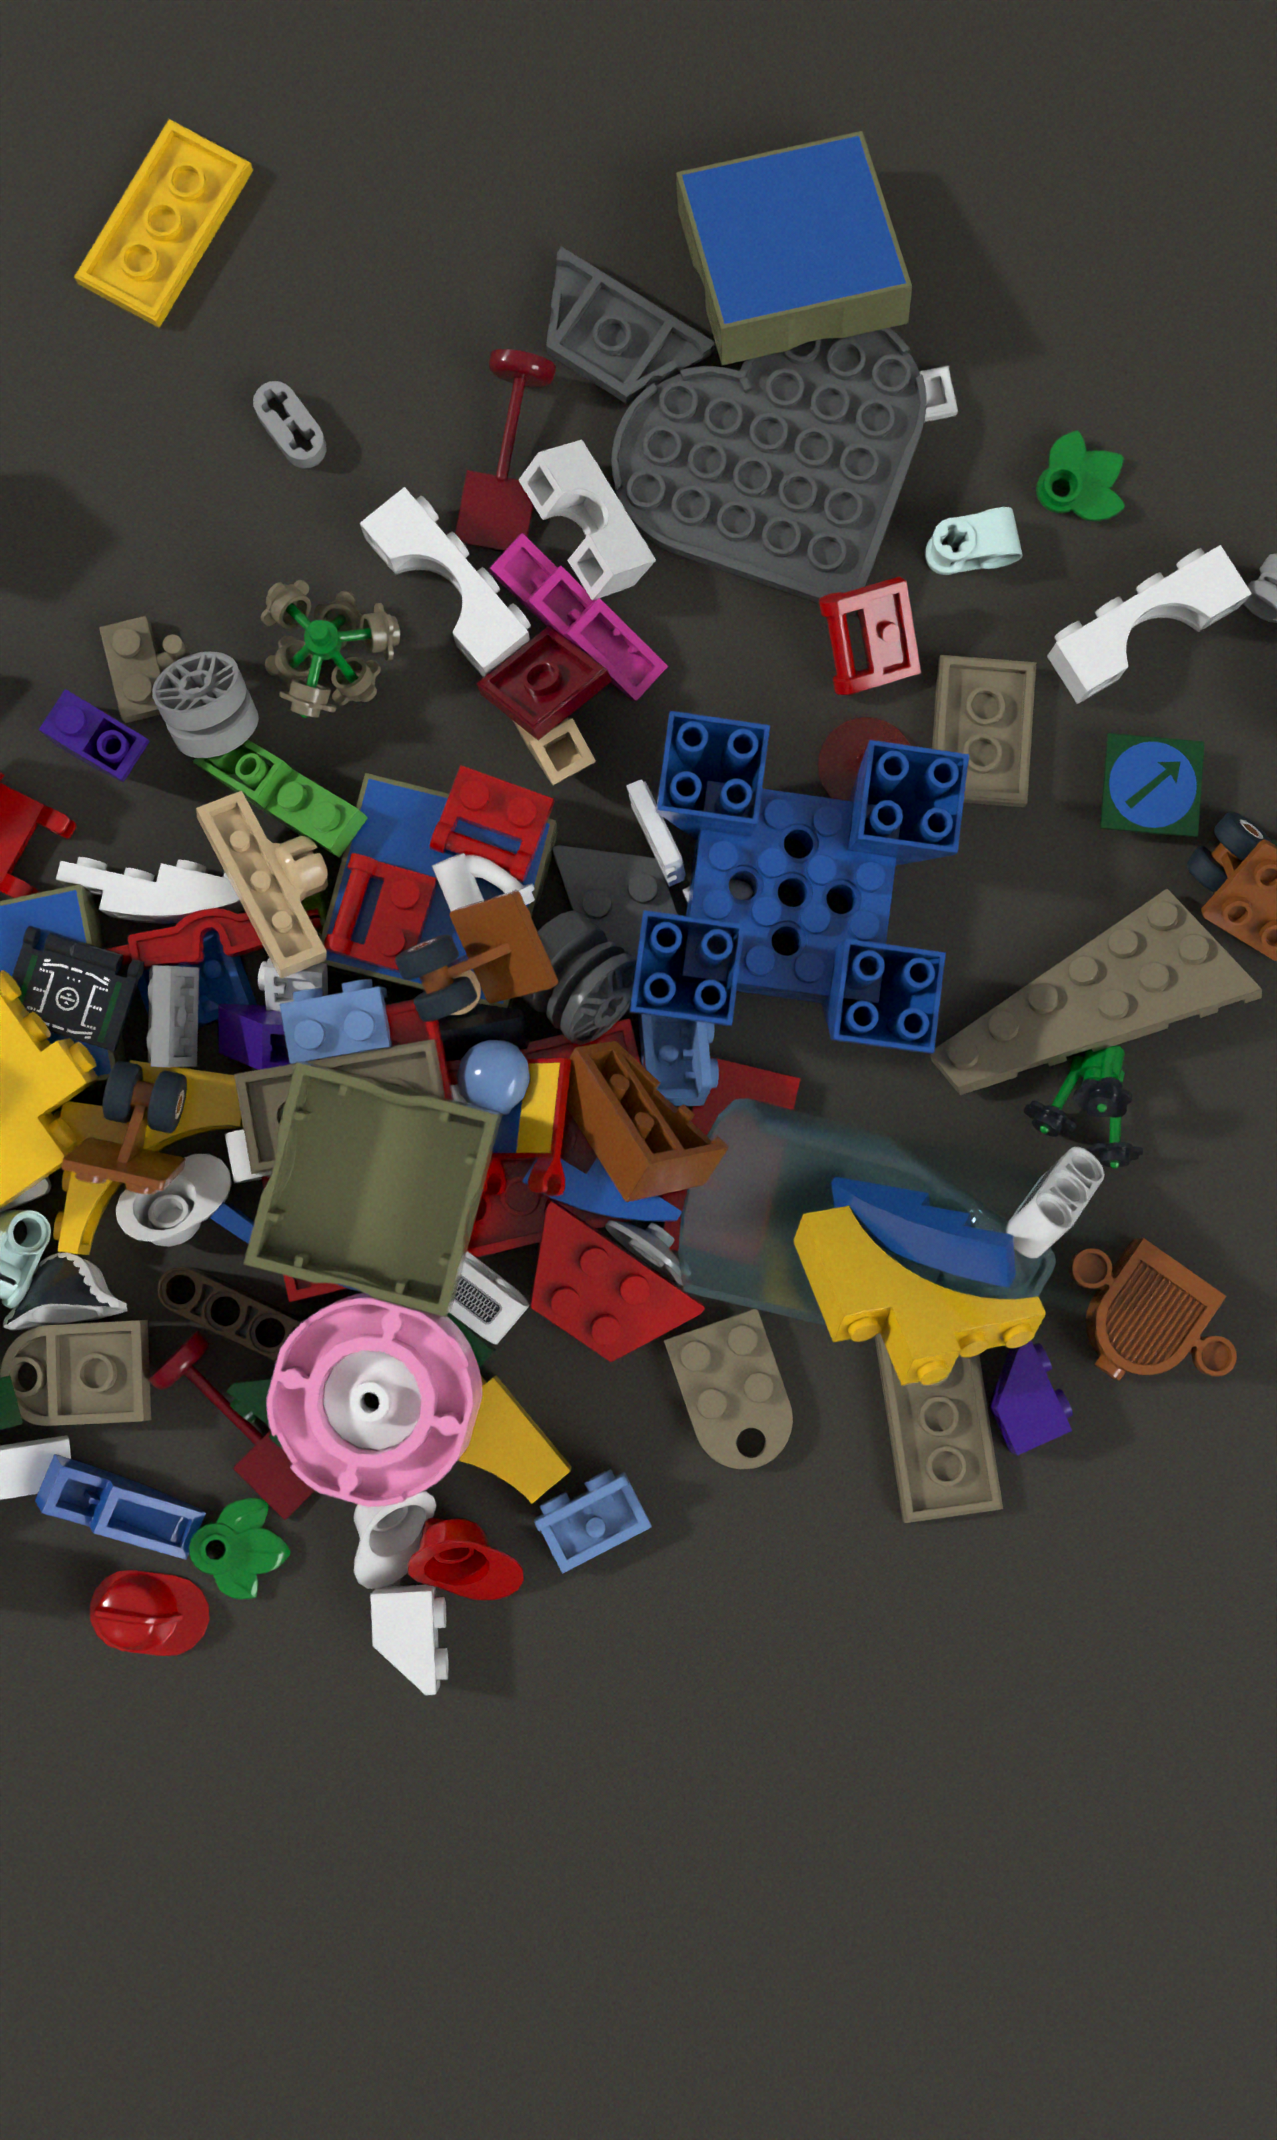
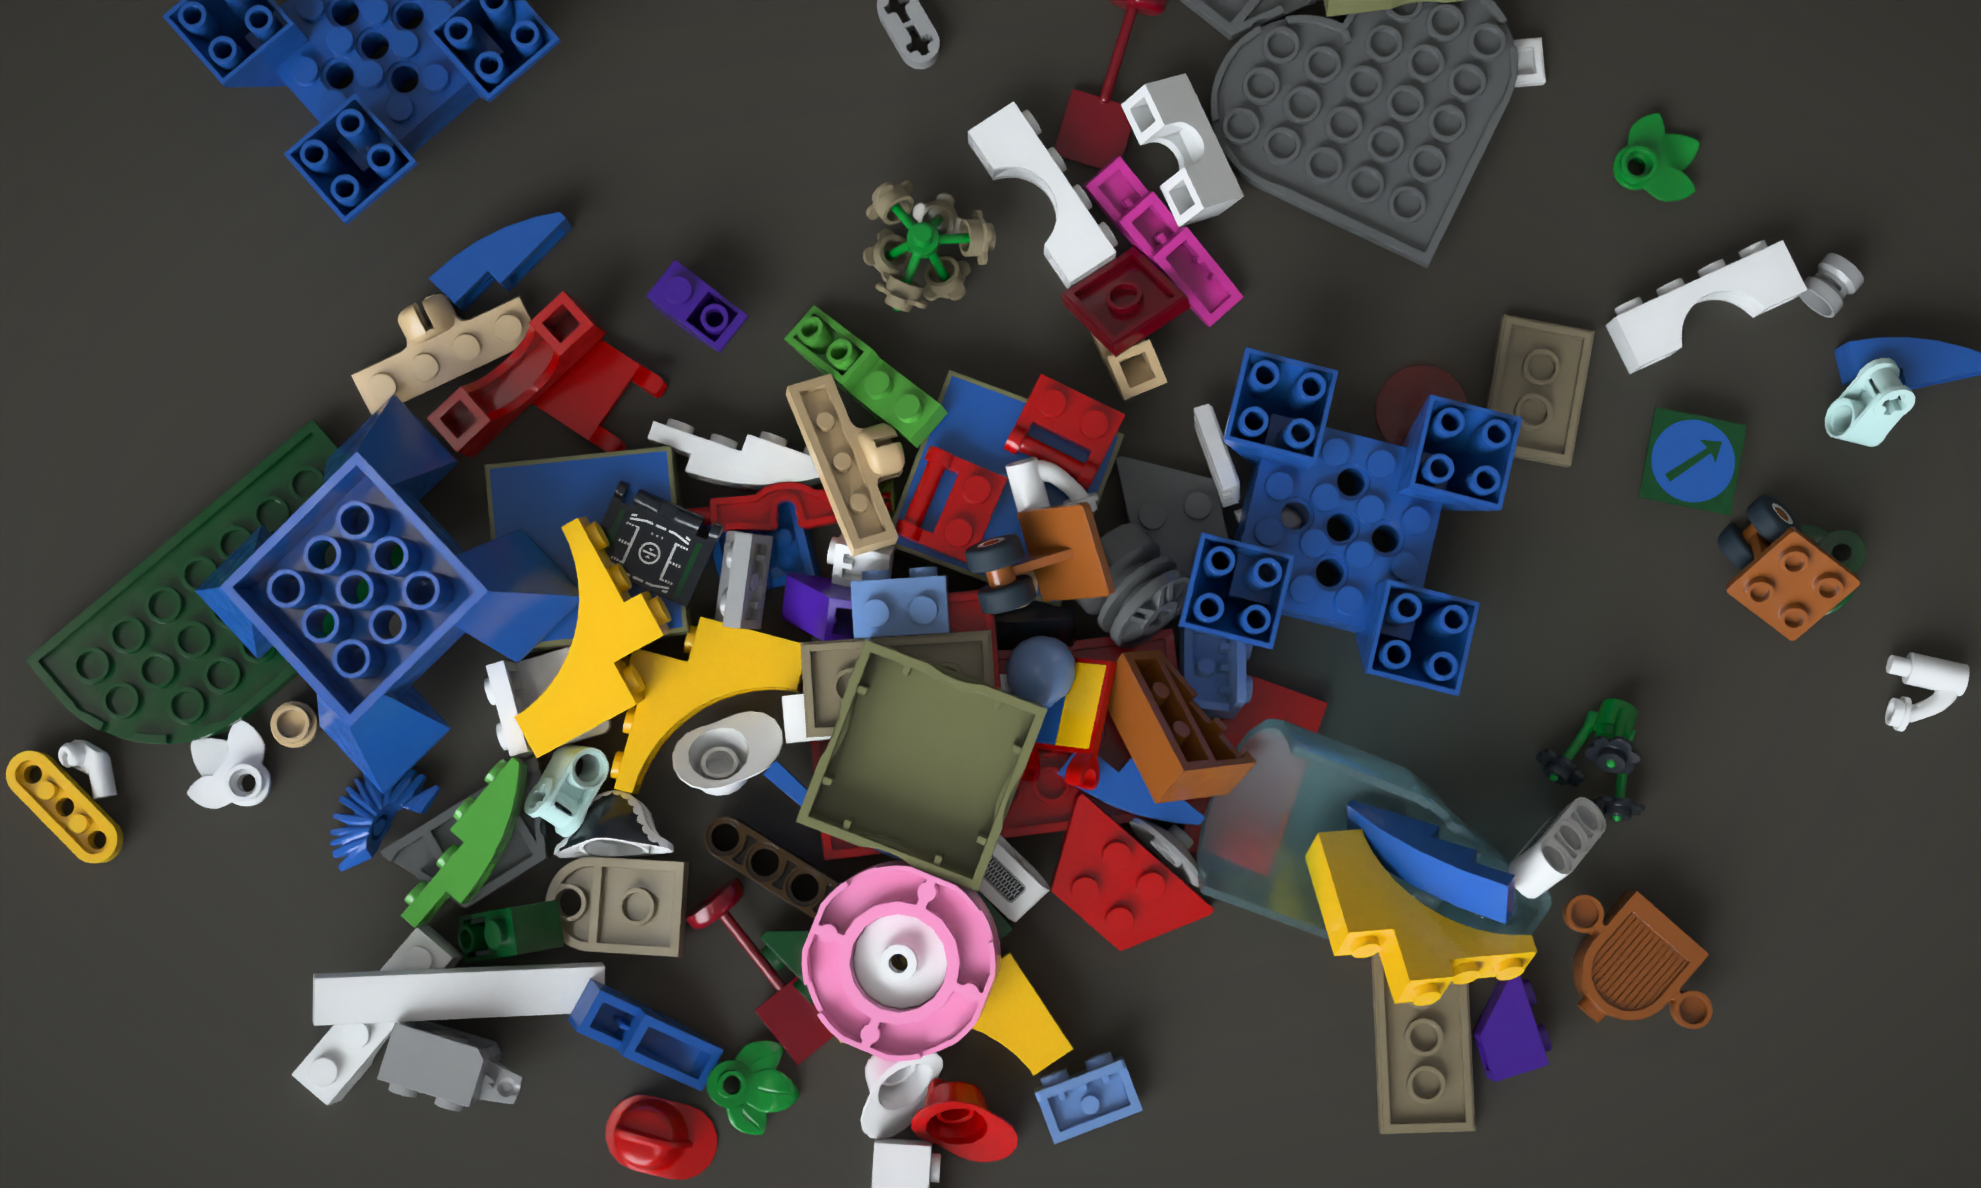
camera: 10 degrees right, 0 degrees up
(136, 664) = (741, 243): dark tan plate -> none
(141, 1103) = (705, 721): dark orange plate -> none
(205, 704) = (805, 288): light grey wheel -> none
(732, 1386) = (1231, 986): dark tan plate -> none
(885, 631) = (1455, 290): plate -> none
(982, 541) = (1555, 210): light aqua piece -> none
(1110, 991) = (1630, 654): dark tan wing -> none

